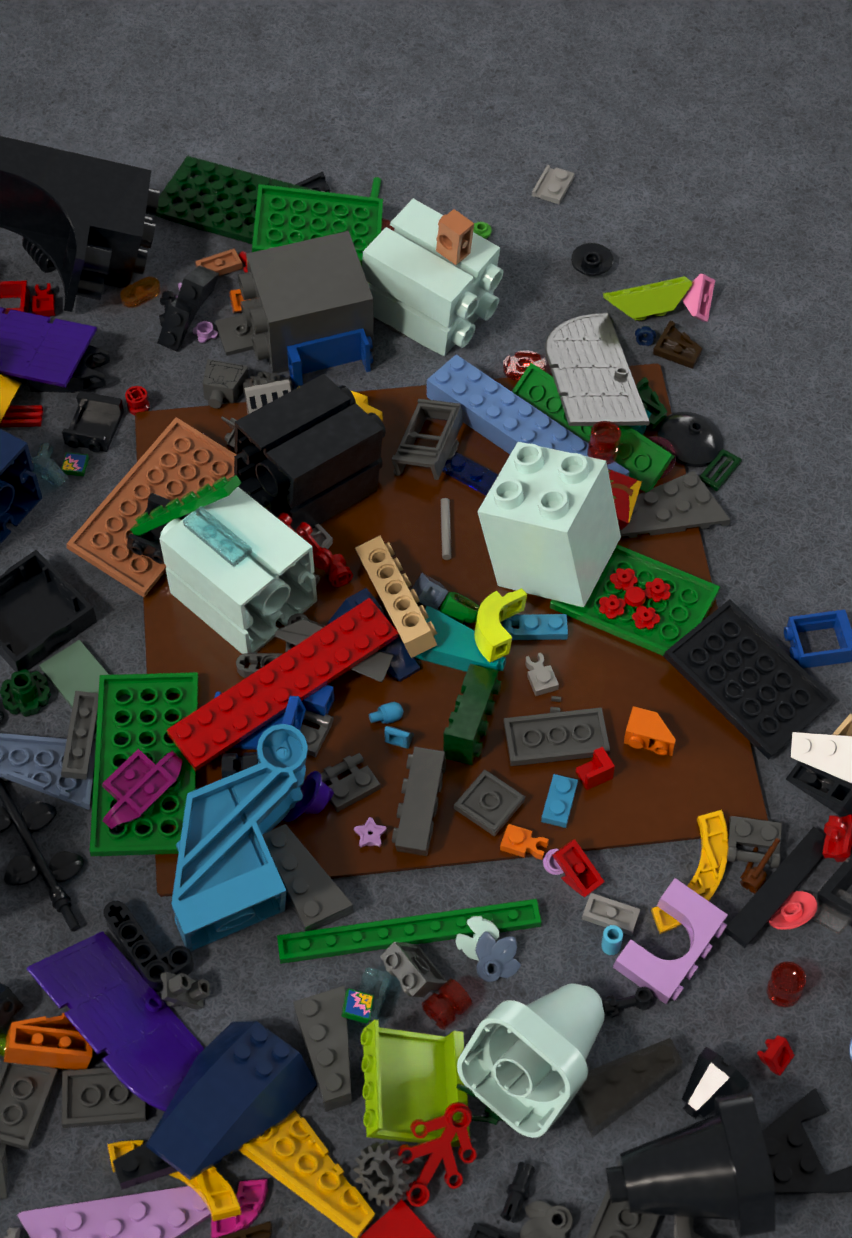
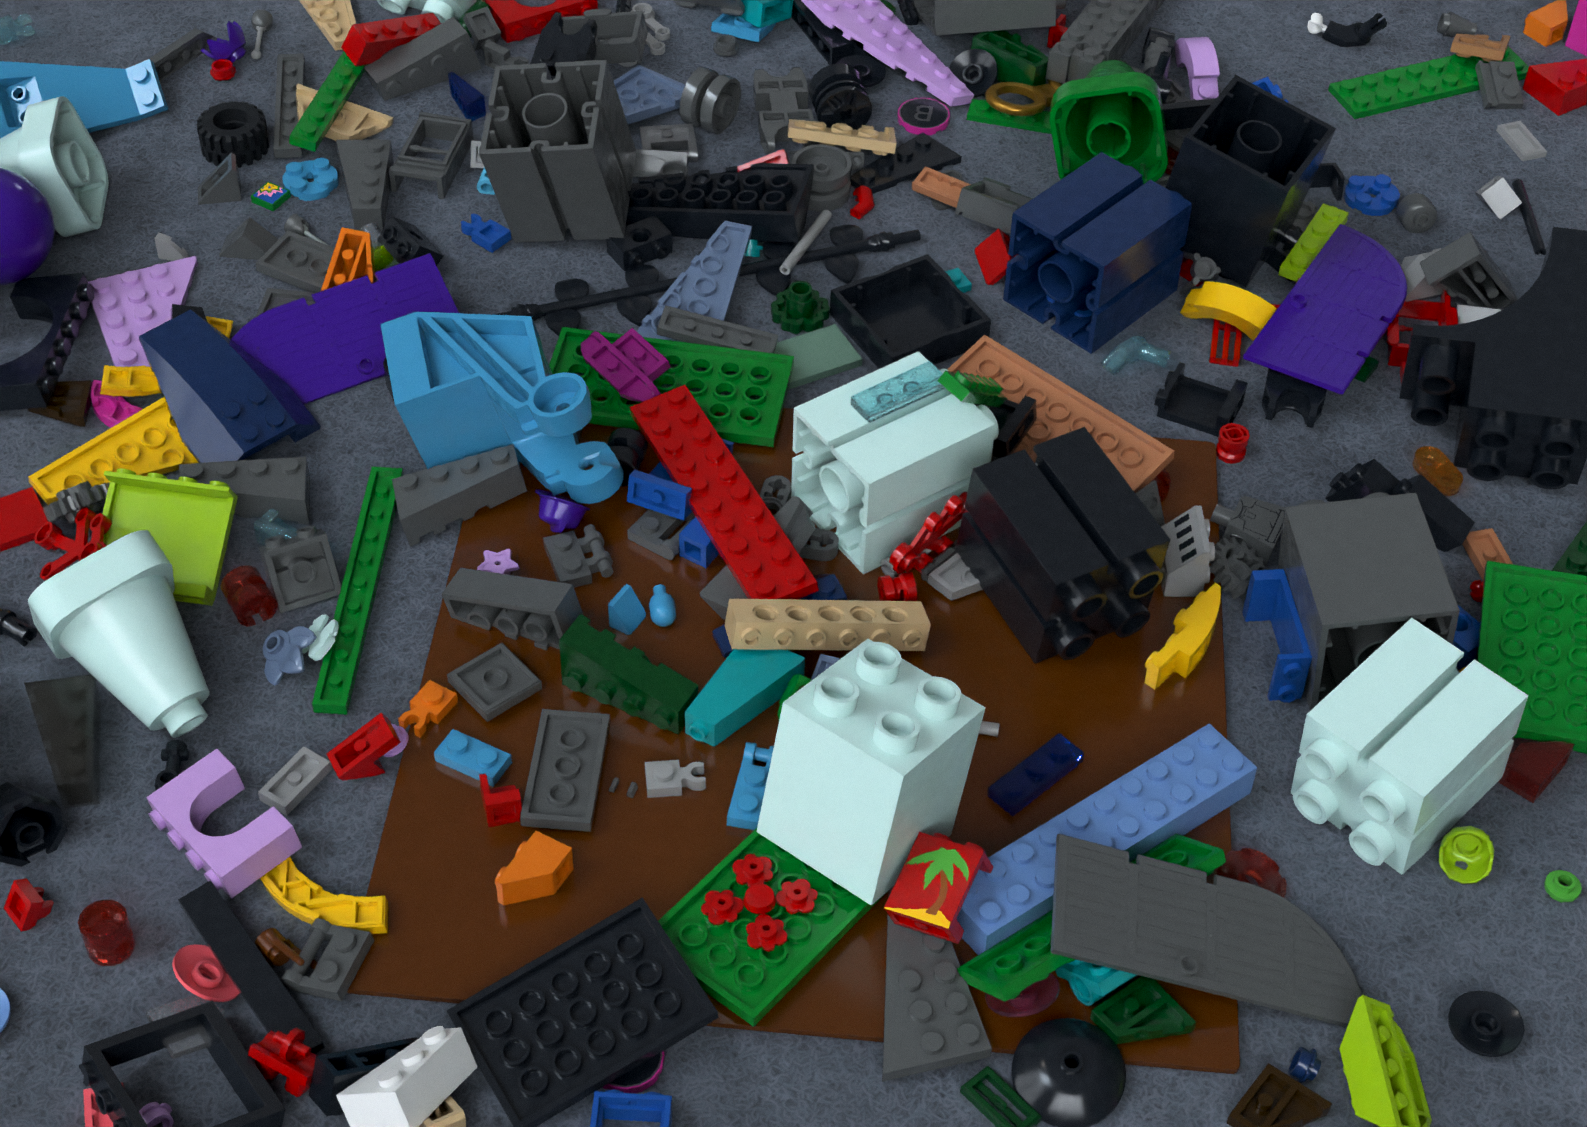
camera: 100 degrees right, 10 degrees down
(75, 464) = (1138, 383): tile -> none
(184, 991) = (367, 383): dark grey hips -> none
(357, 1006) = (272, 504): tile -> none
(447, 444) = (1092, 733): dark grey piece -> none
(454, 236) = (1417, 710): nougat brick -> none
(489, 634) = (738, 701): neon yellow arch -> none
(604, 441) = (1027, 888): clear red wheel -> none
(612, 940) = (255, 766): medium azure piece -> none

